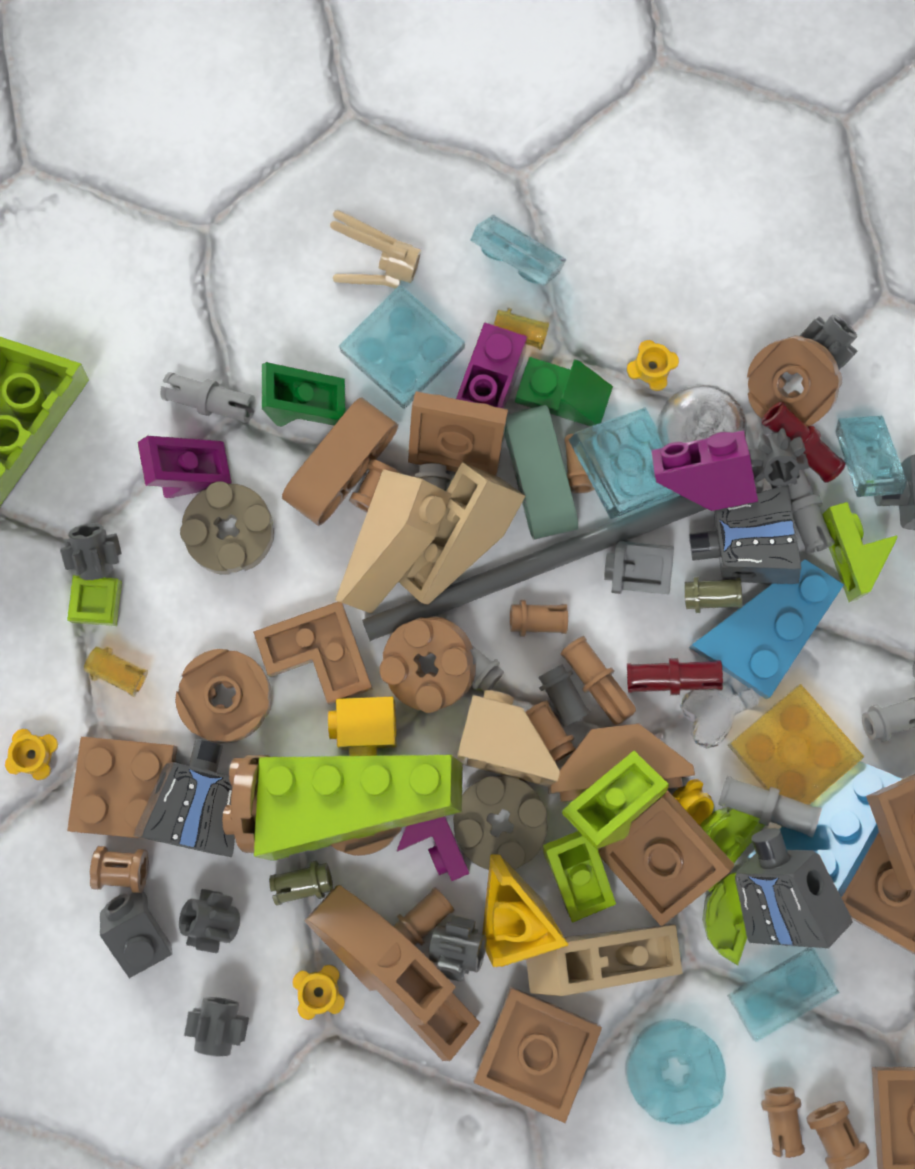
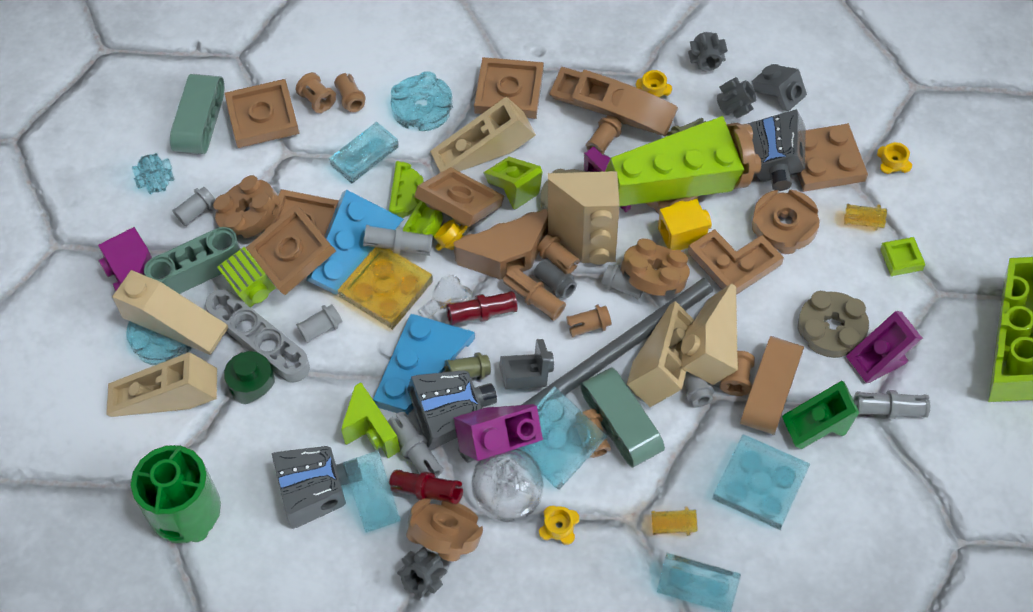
camera: 165 degrees right, 20 degrees down
(90, 551) = (920, 276): dark grey gear -> none
(119, 869) = (809, 110): medium nougat bush -> none
(397, 258) = (793, 547): tan plant -> none
(455, 432) = (707, 412): medium nougat plate -> none
(457, 948) = (577, 120): dark grey gear -> none
(493, 366) = (684, 469): magenta slope -> none
(516, 918) = (543, 141): yellow slope -> none
(568, 393) = (621, 485): green slope -> none
(615, 800) = (504, 201): lime slope -> none
(778, 459) = (444, 456): dark grey gear -> none
(789, 896) = (386, 190): dark grey torso -> none

